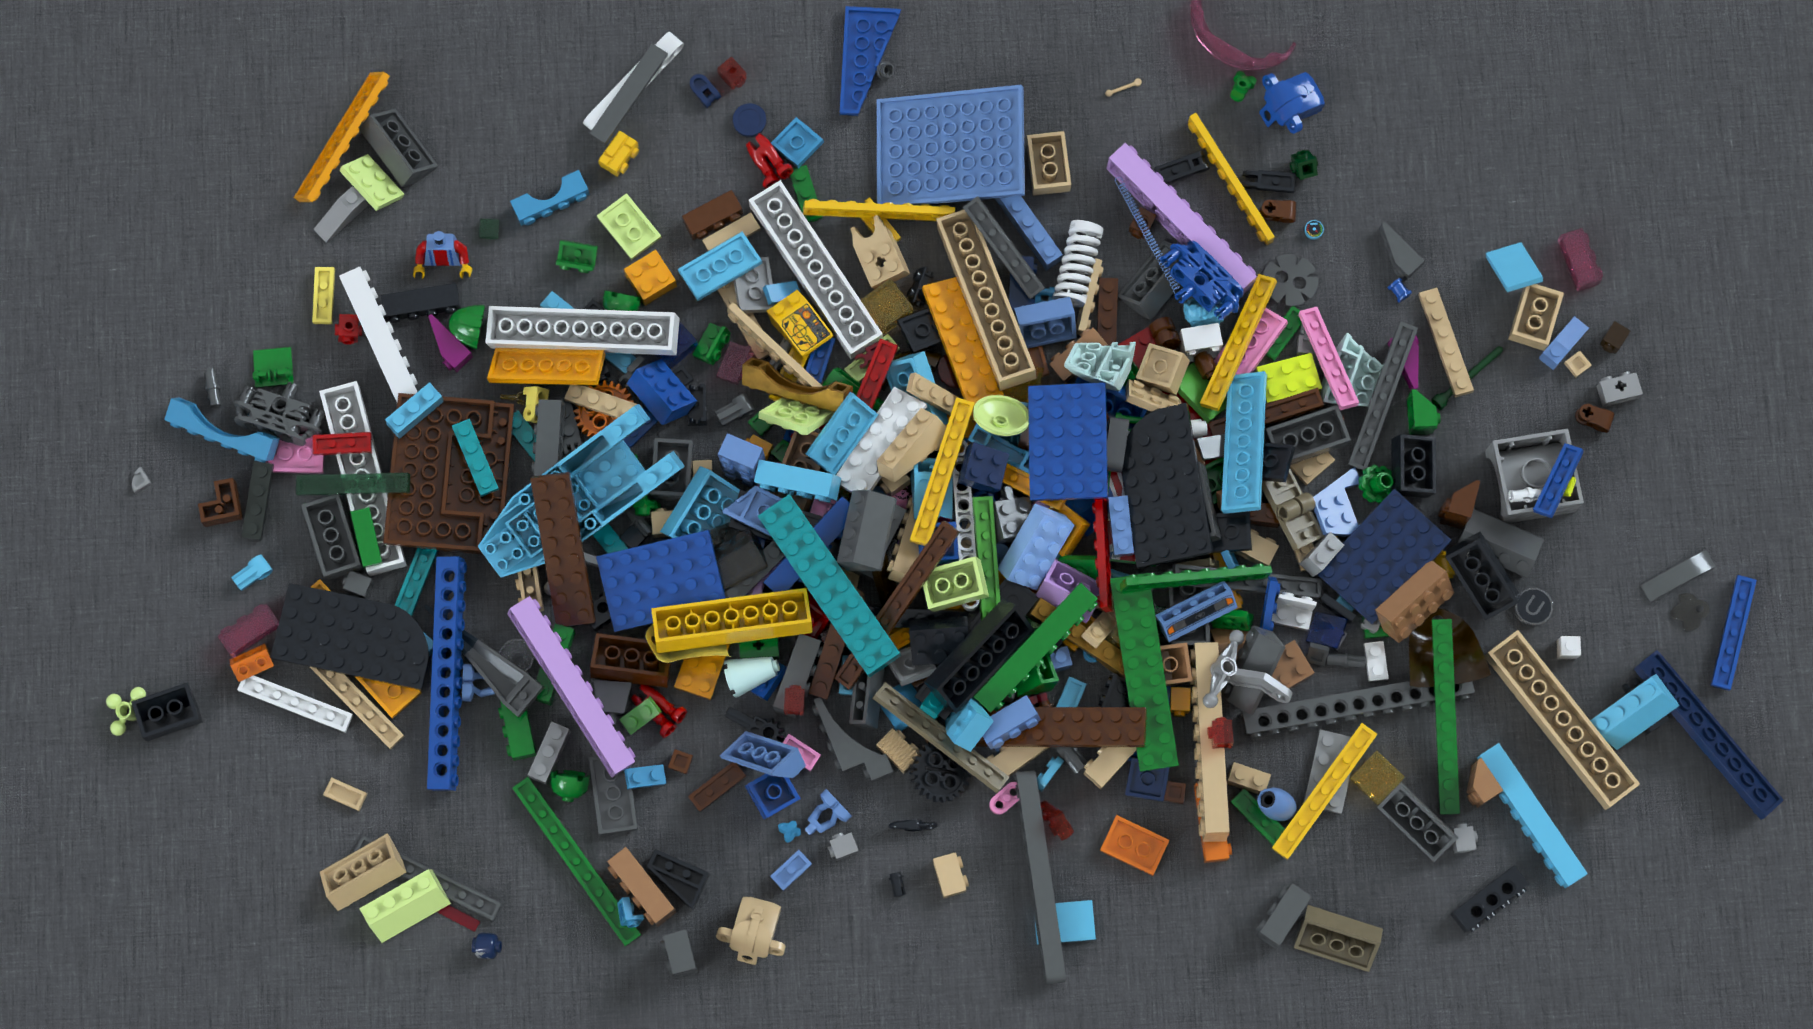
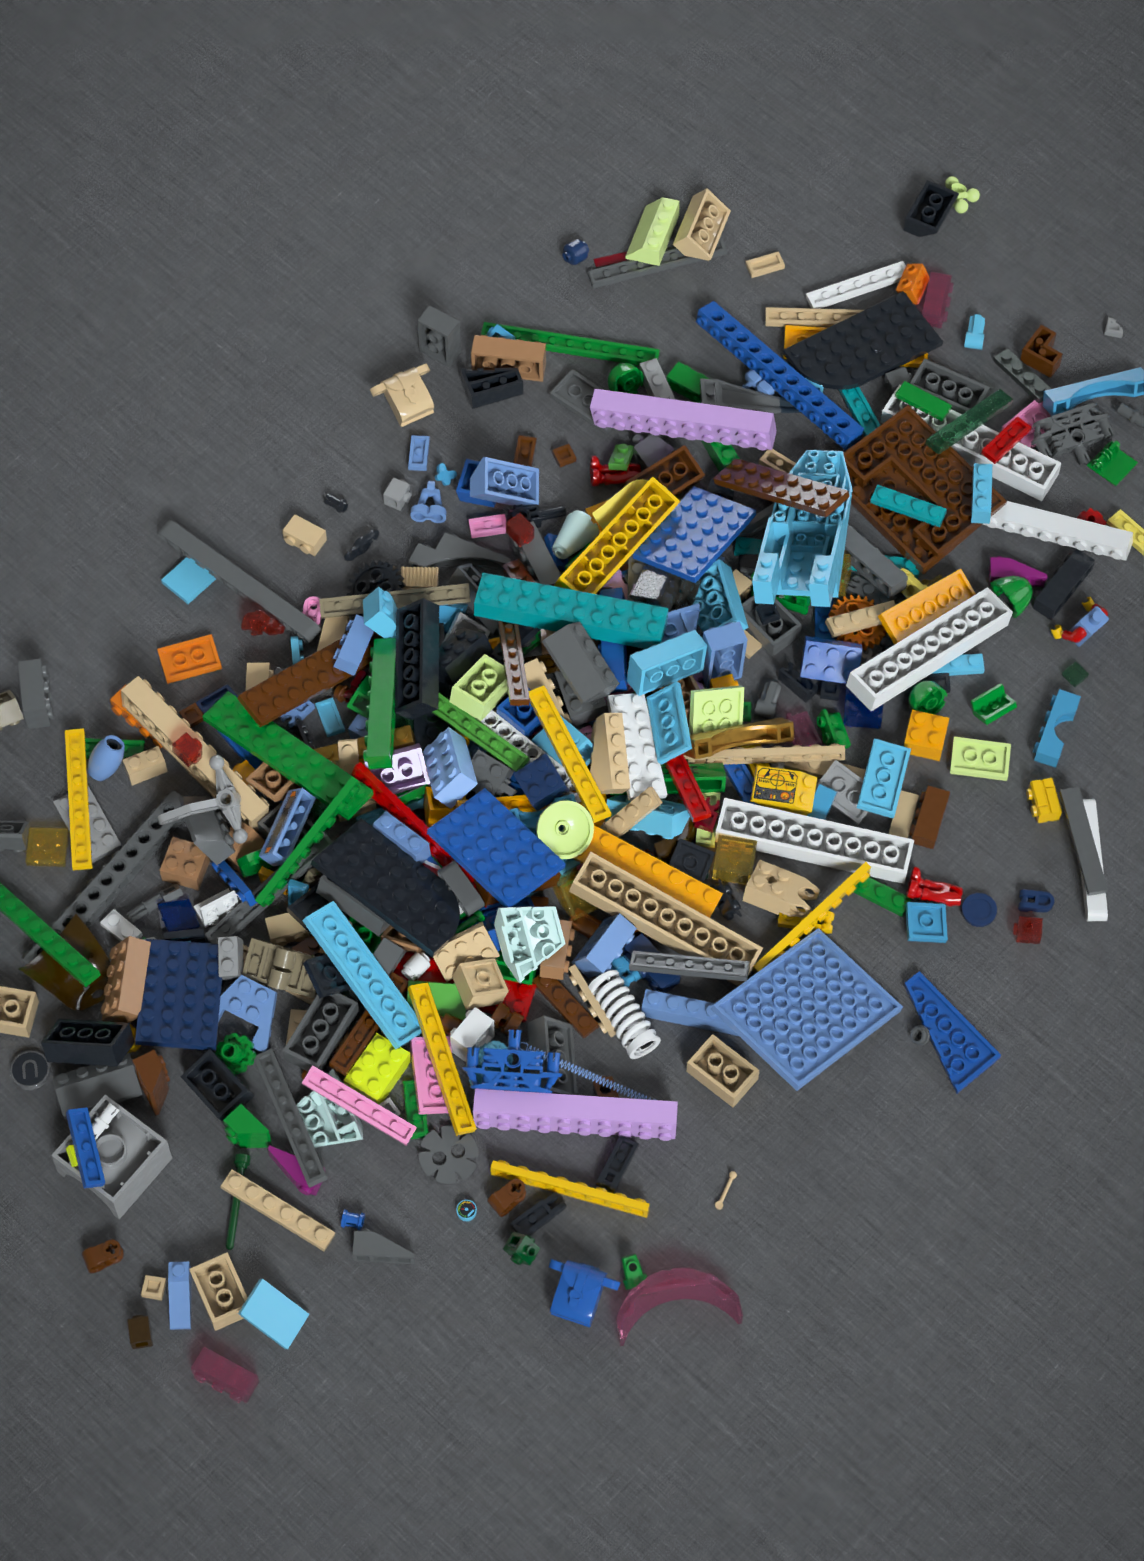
camera: 140 degrees right, 15 degrees down
(645, 776) = (577, 426): dark azure plate -> none
(1610, 395) = (101, 1285): light grey brick -> none

